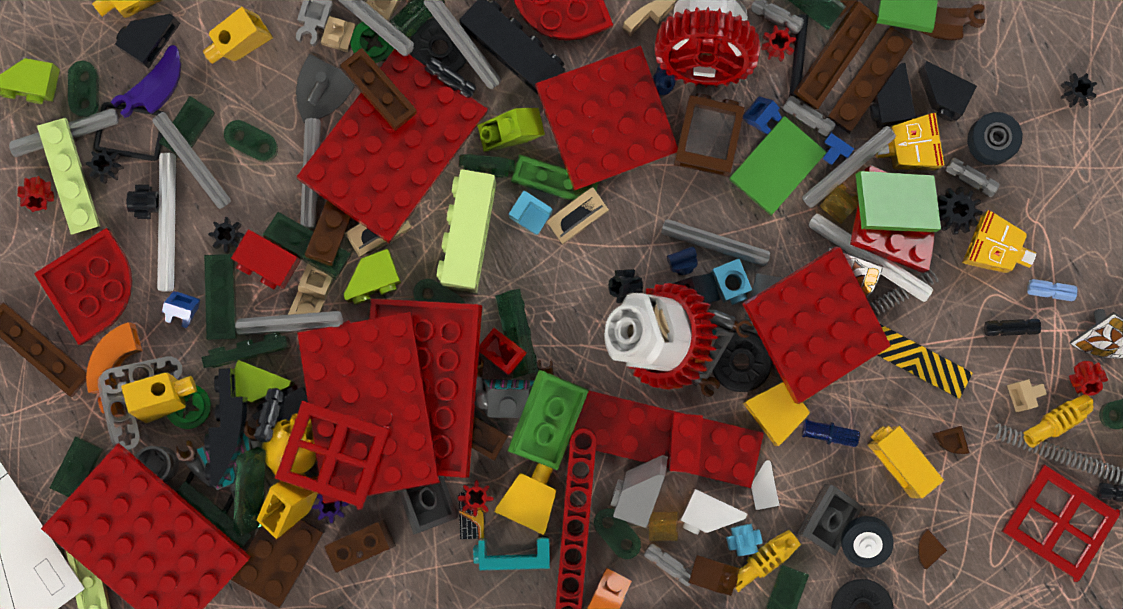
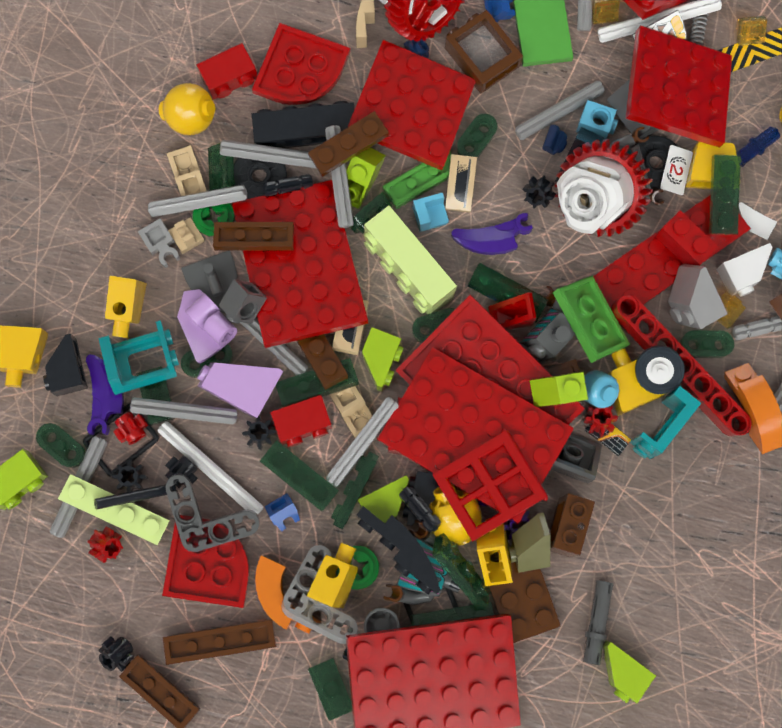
camera: 50 degrees left, 5 degrees down
(90, 182) = (132, 496): none -> black piece
(110, 250) = (197, 525): none -> dark grey beam
(142, 131) = (130, 428): none -> red gear
(184, 74) = (118, 365): none -> teal window
(250, 185) = (240, 385): none -> lavender slope
(274, 114) = (204, 325): none -> lavender panel
(316, 128) = (242, 302): none -> dark grey brick
(317, 528) = (531, 545): none -> olive slope
(461, 445) = (559, 389): none -> lime slope
(490, 113) = (341, 187): none -> light grey axle
(496, 476) = (601, 389): none -> medium azure head
(519, 97) = (348, 144): none -> reddish brown plate
(552, 511) = (659, 369): none -> black wheel
(554, 283) = (492, 239): none -> dark purple piece
(629, 194) = (475, 138): none -> clear green plate
(747, 383) = (676, 170): none -> white sticker
(755, 441) = (724, 194): none -> clear green plate
(931, 343) = (751, 30): none -> clear yellow tile

